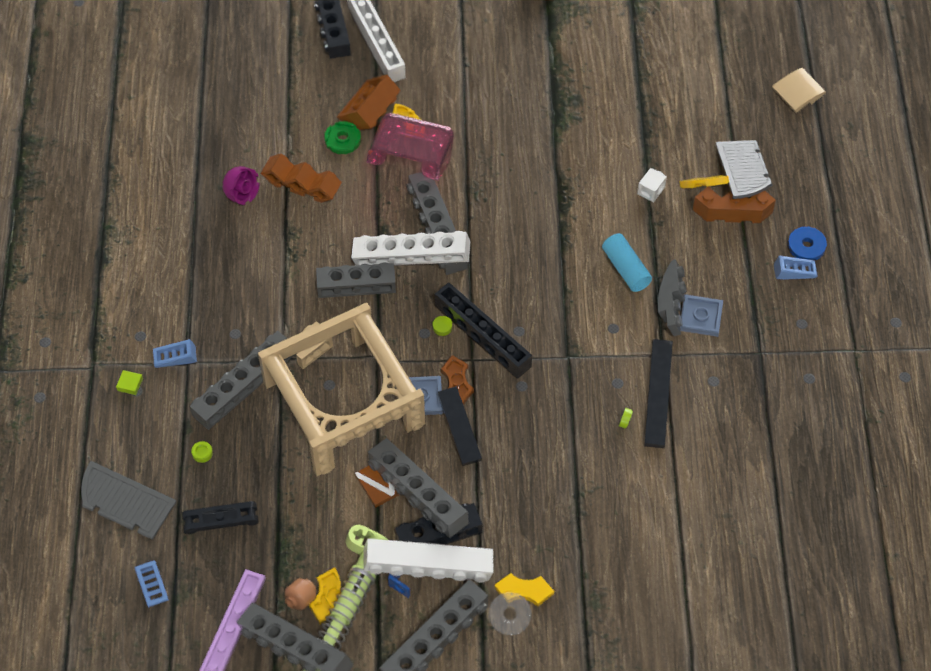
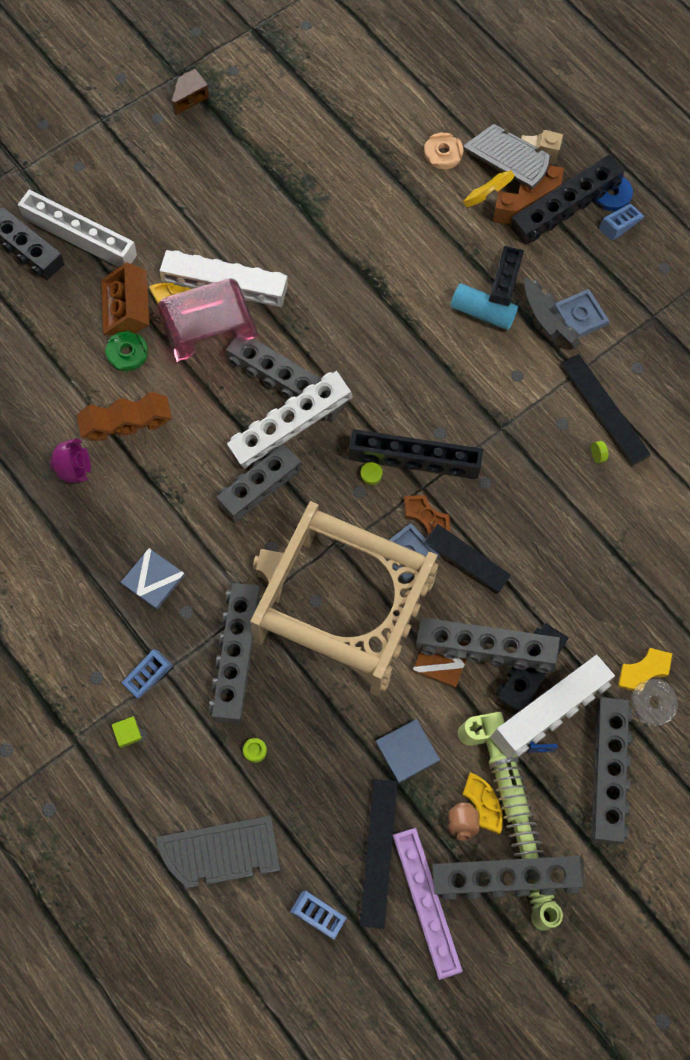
camera: 40 degrees left, 10 degrees up
(220, 517) = (327, 802): black plate -> none
(225, 575) = (378, 854): none -> black tile
(230, 296) = (152, 579): none -> sand blue tile
(304, 524) = (407, 751): none -> sand blue tile
(466, 141) = (196, 271): none -> white brick
(652, 184) = (444, 220): white brick -> none
(662, 250) = (506, 276): none -> black tile
(695, 145) = (443, 160): none -> light nougat tile
(776, 224) = (604, 169): none -> black brick
(782, 178) = (546, 141): none -> tan arch
(798, 89) = (492, 55): tan slope -> none

